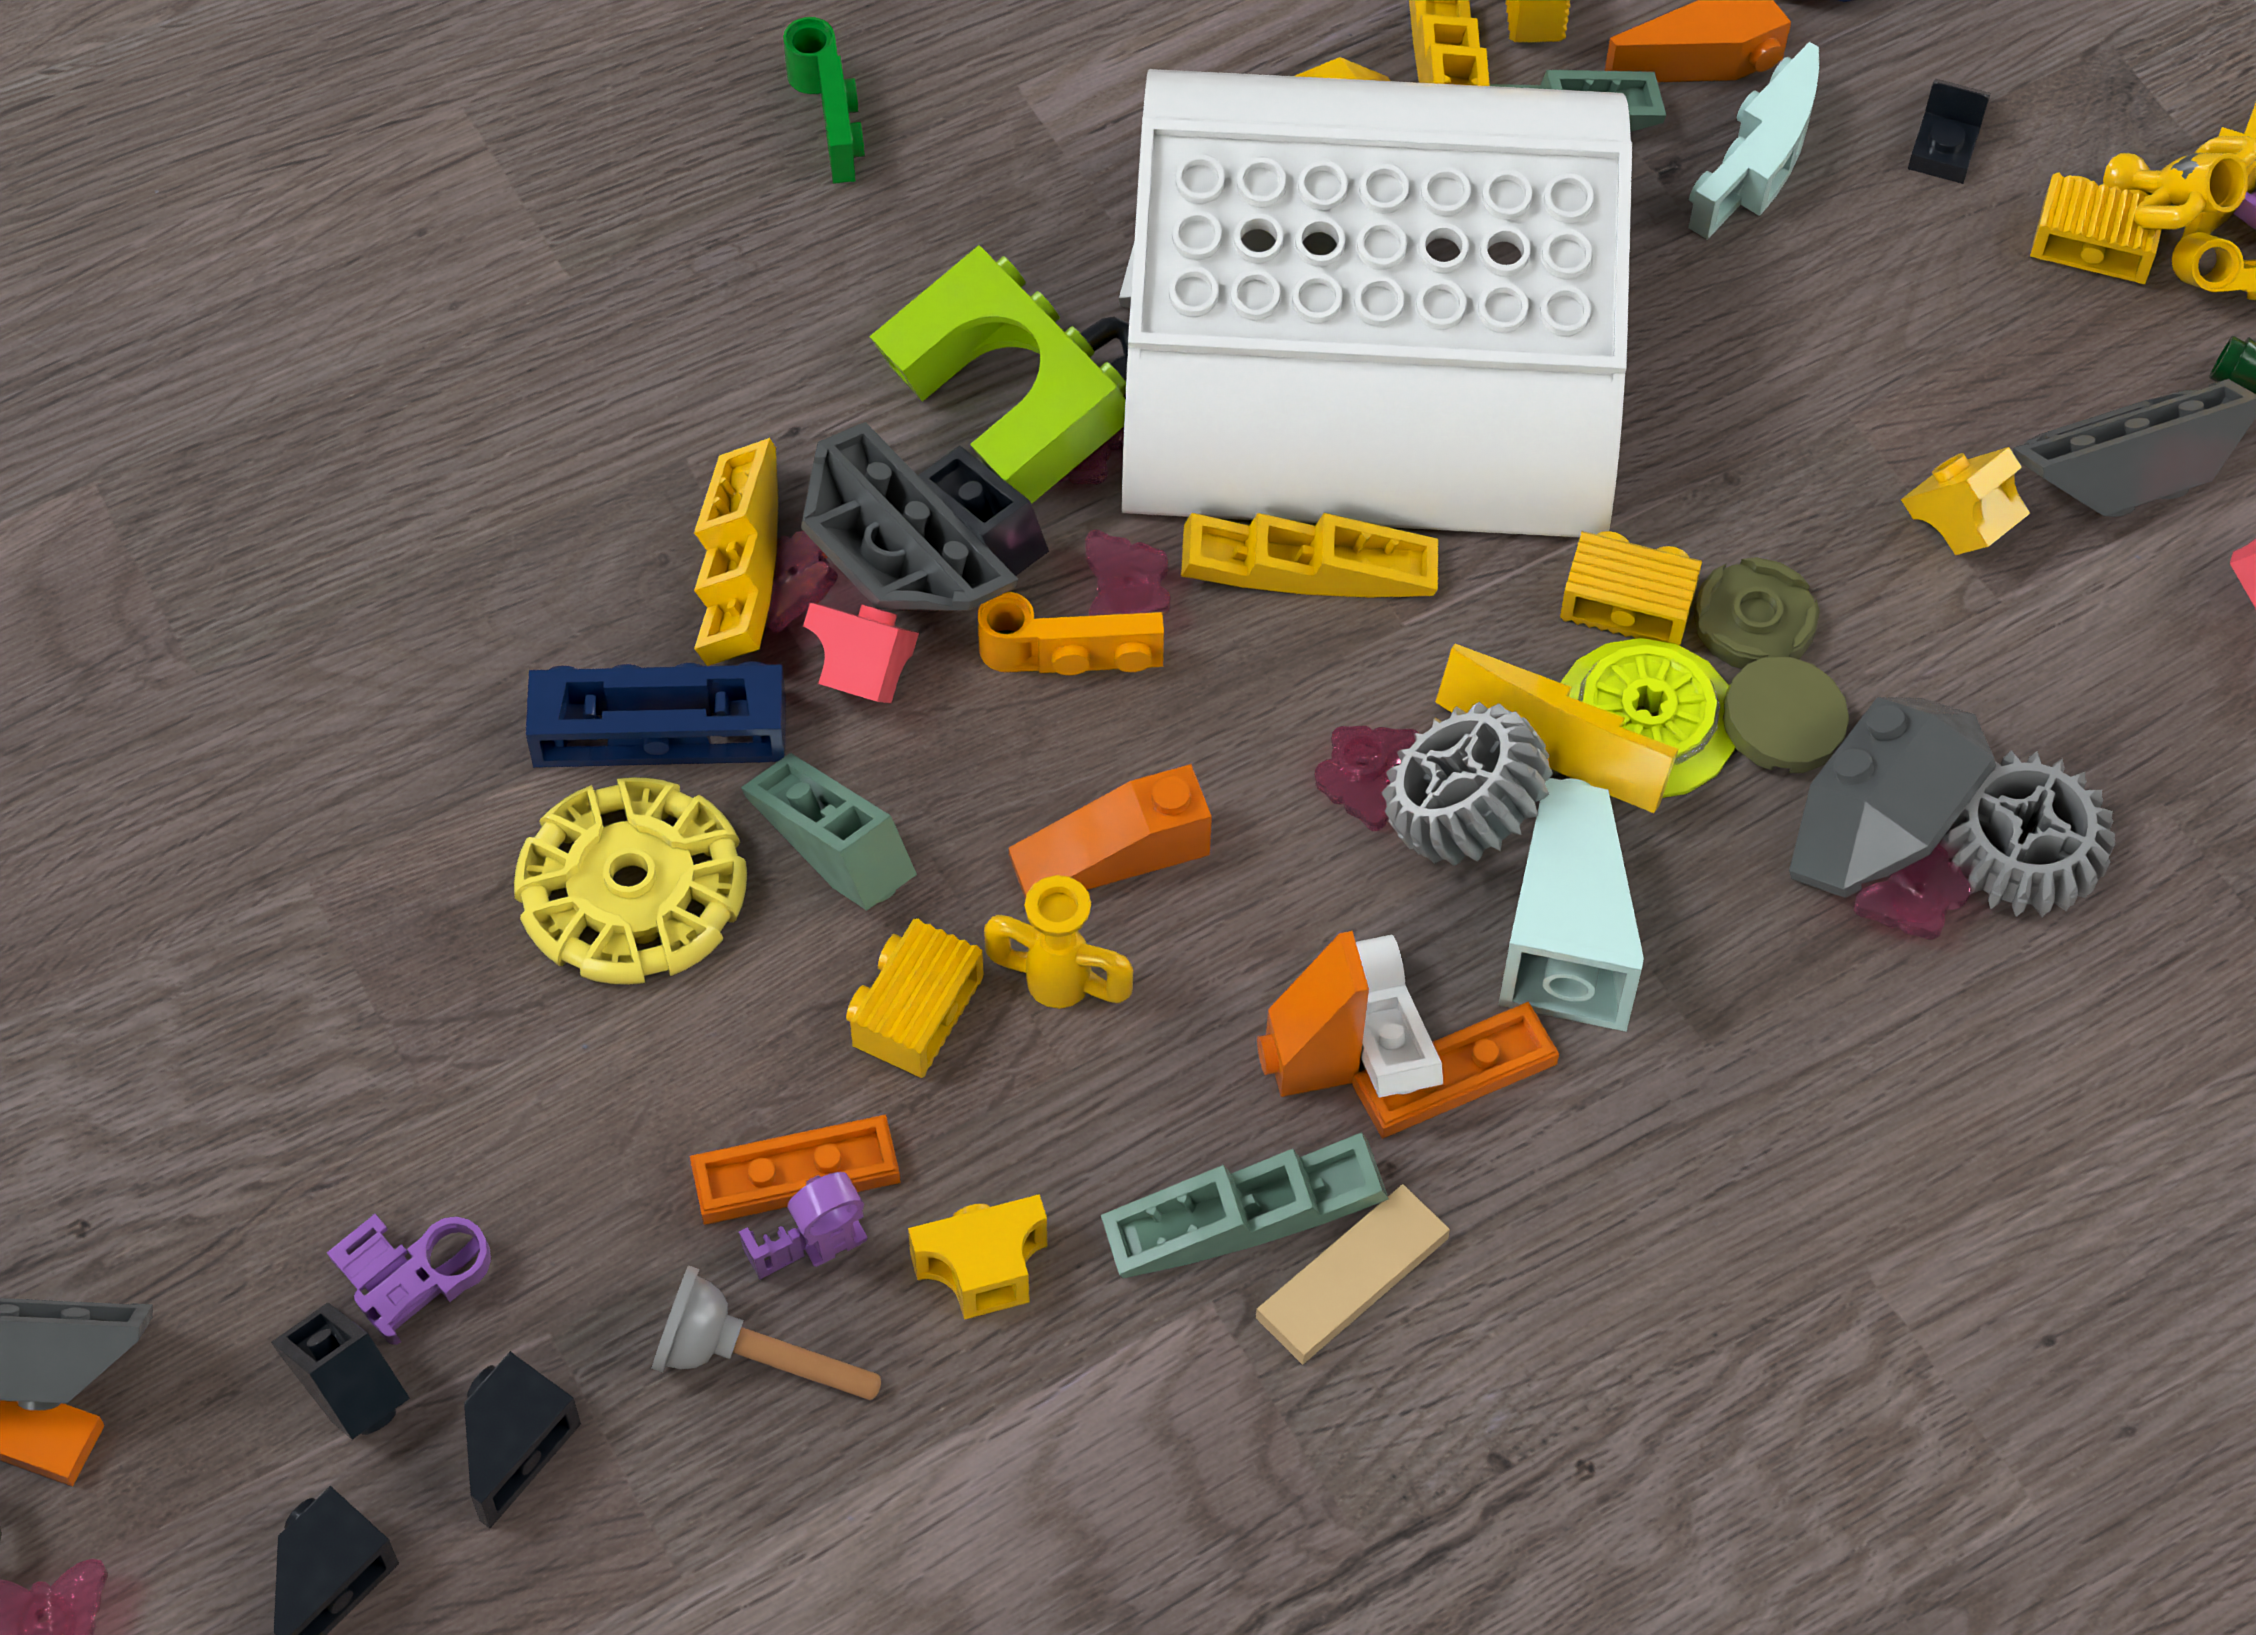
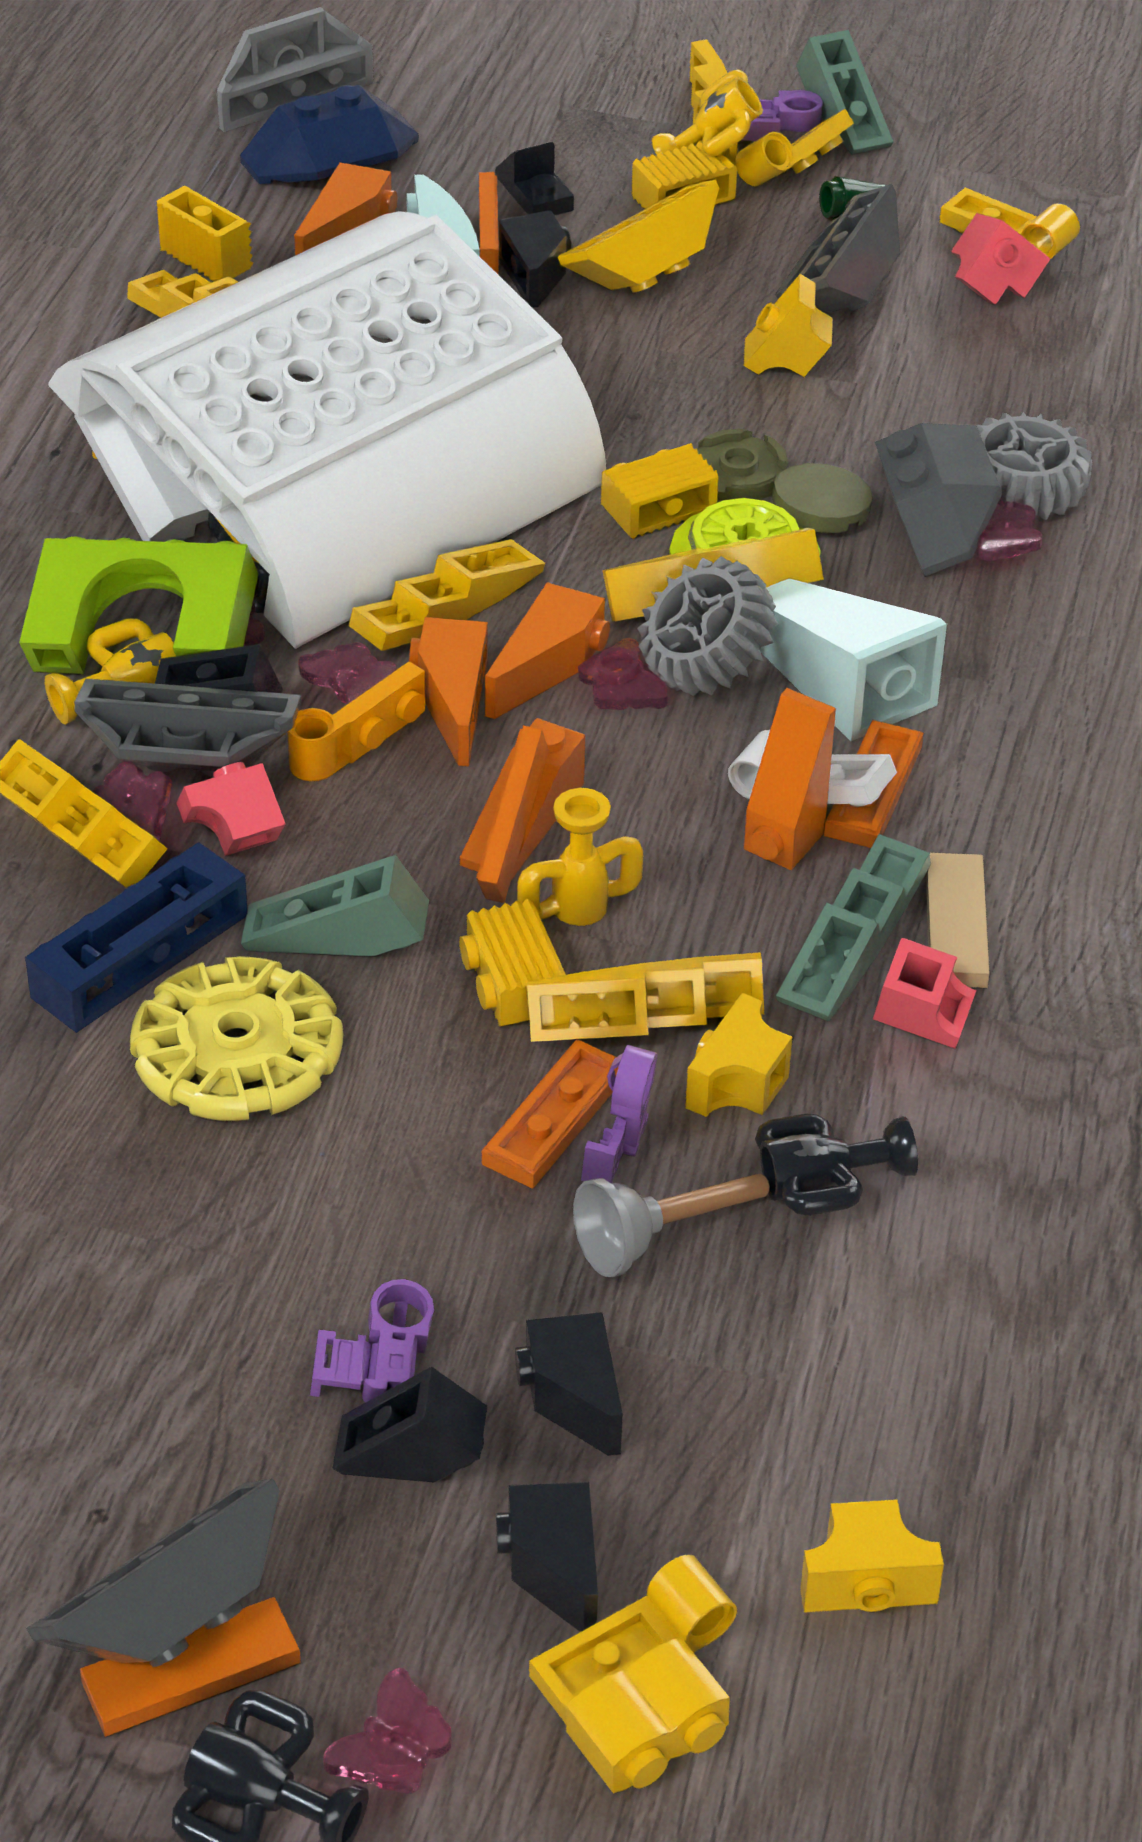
camera: 45 degrees left, 15 degrees down
(933, 1412) = (807, 1161): none -> black piece
(939, 427) = (133, 663): none -> yellow piece
(963, 1116) = (641, 996): none -> yellow slope
(1059, 846) = (512, 814): none -> orange tile
(1210, 649) = (455, 671): none -> orange slope
(1210, 1321) = (924, 994): none -> coral brick
(1318, 687) = (546, 647): none -> orange slope
(1826, 154) = (488, 219): none -> orange tile
(1838, 219) = (530, 253): none -> black slope
(1955, 285) = (648, 242): none -> yellow wedge

